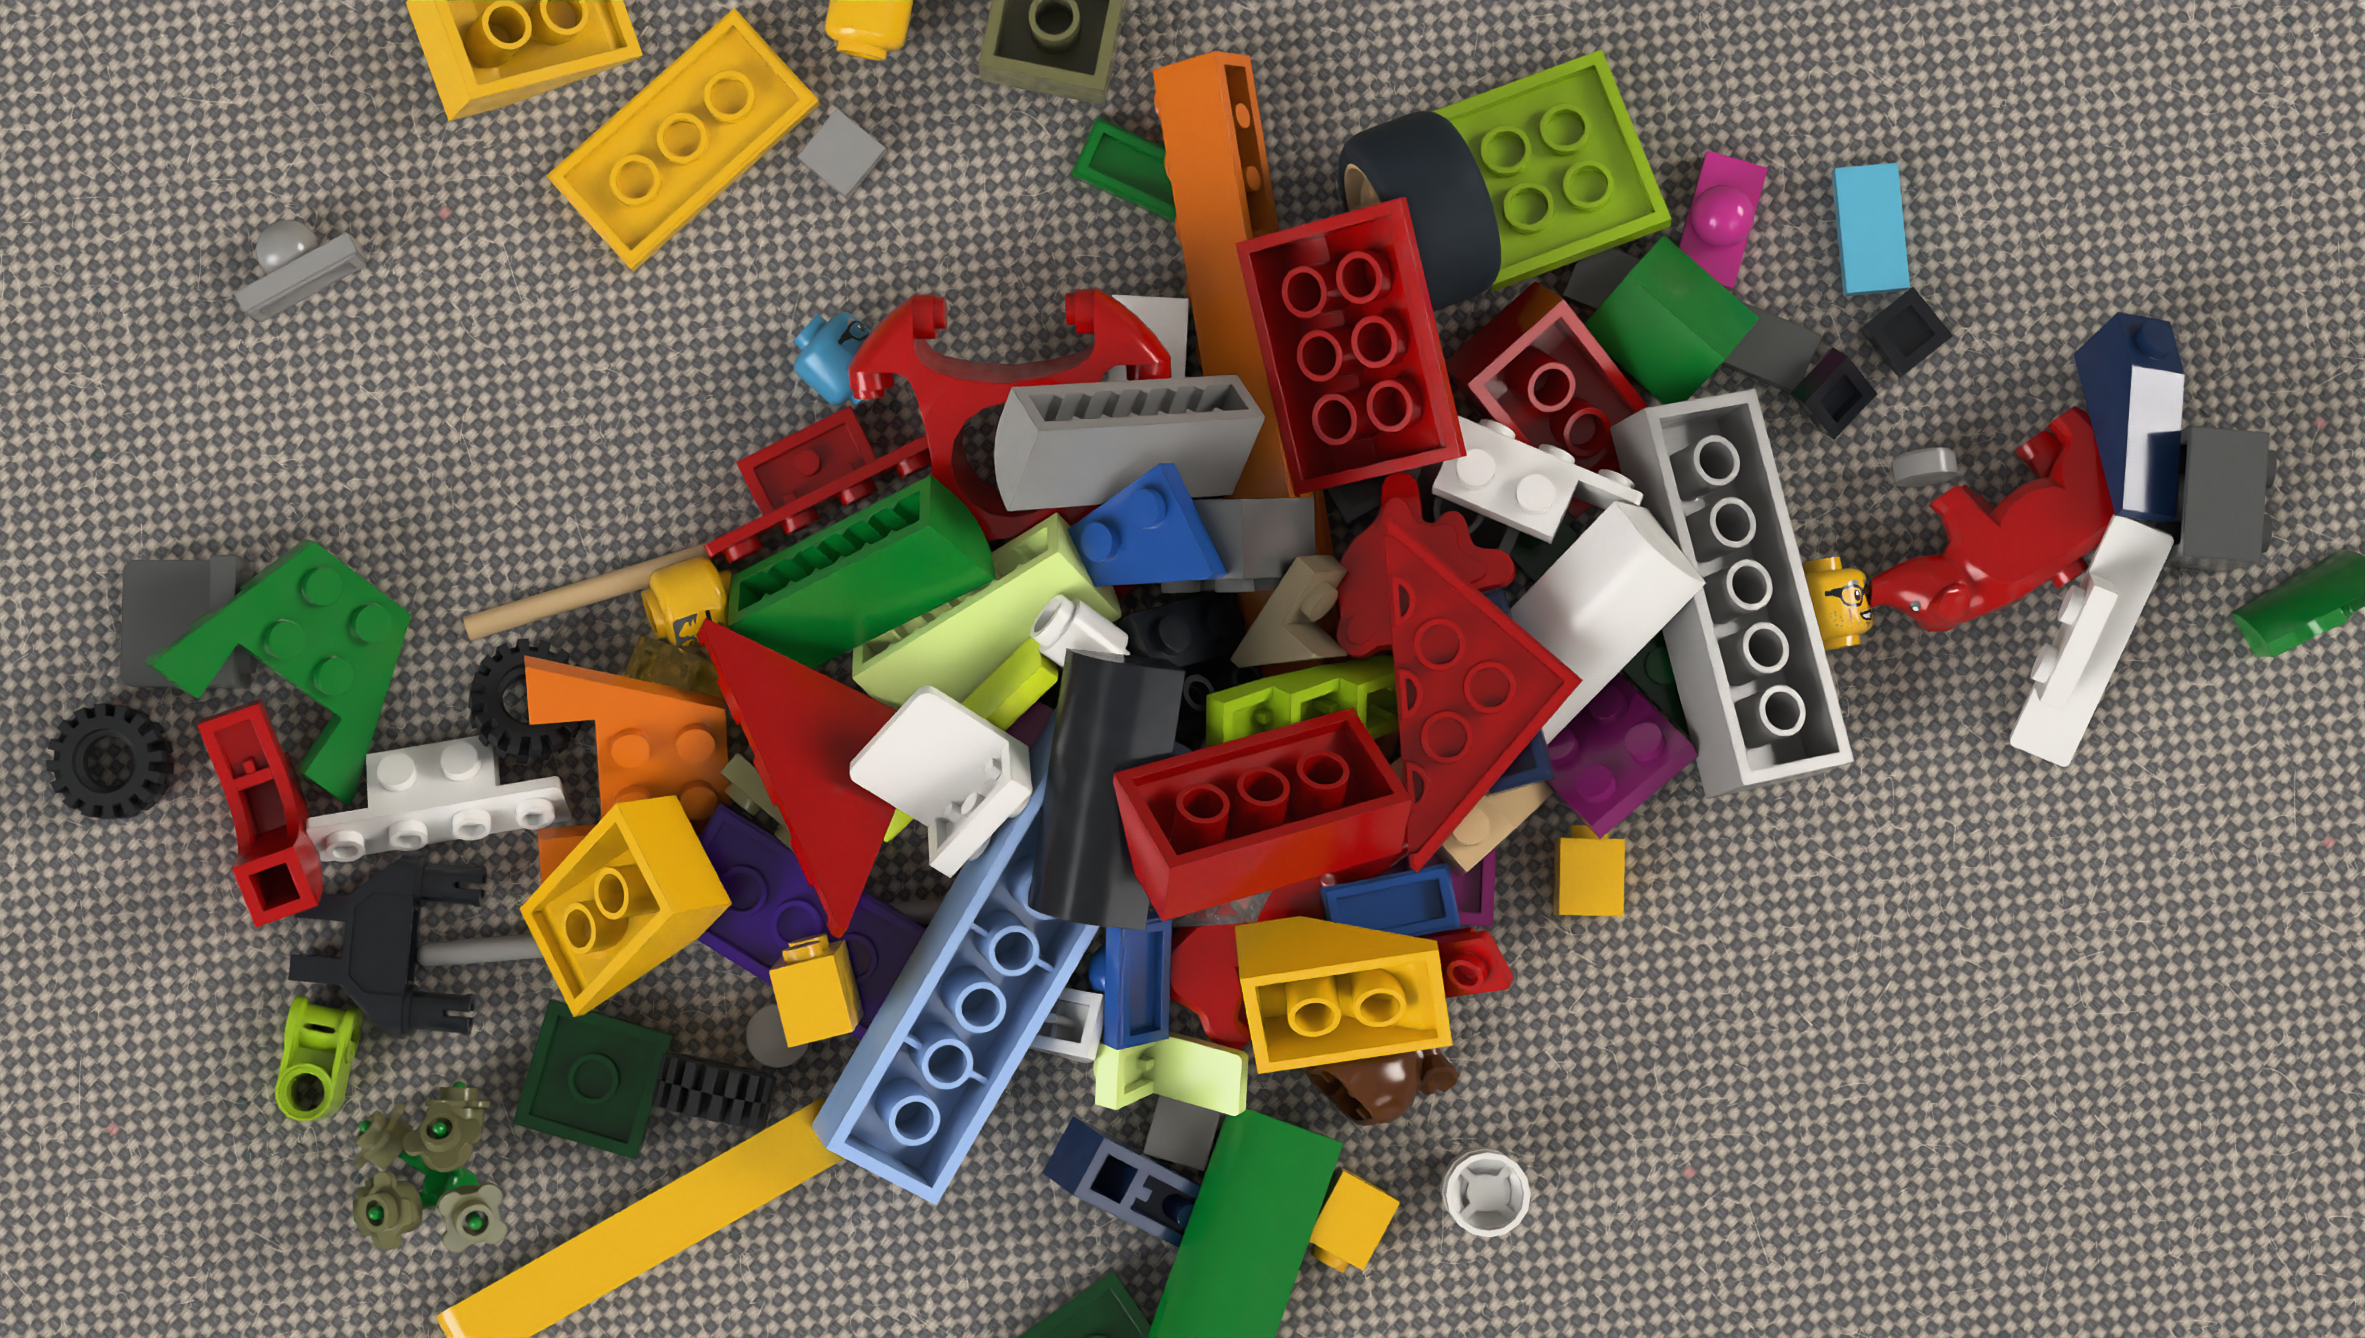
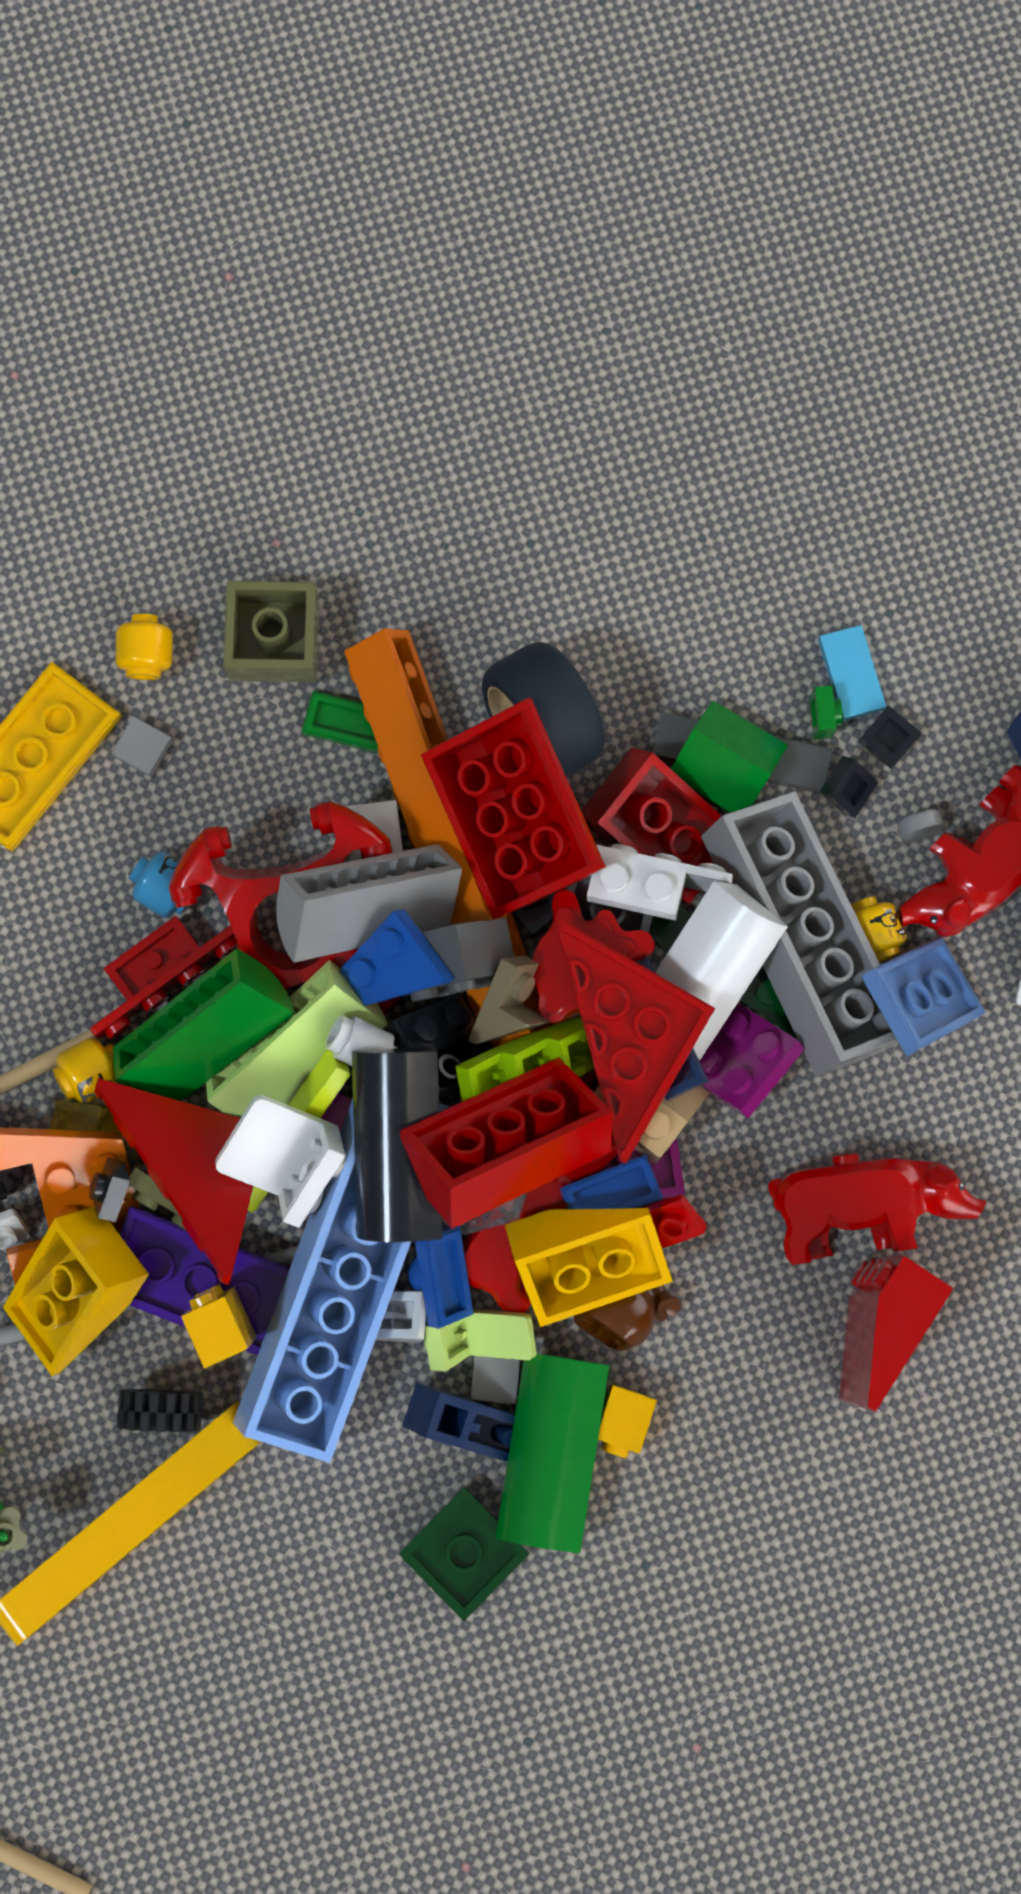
camera: 10 degrees left, 5 degrees down
(593, 1079) = (73, 1419): dark green plate -> none
(697, 776) = (109, 1189): none -> plate
(768, 1041) = (192, 1370): light grey tile -> none
(1485, 1191) = (715, 1382): white wheel -> none
(1560, 167) = (635, 668): lime plate -> none
(1588, 874) = (745, 1146): yellow brick -> none
(1722, 215) = (749, 680): dark pink tile -> none
(1735, 1156) = (885, 1323): none -> red slope
(1746, 973) = (866, 1194): none -> red animal
(1820, 280) = (825, 712): none -> green plate
(1879, 710) = (923, 995): none -> medium blue tile

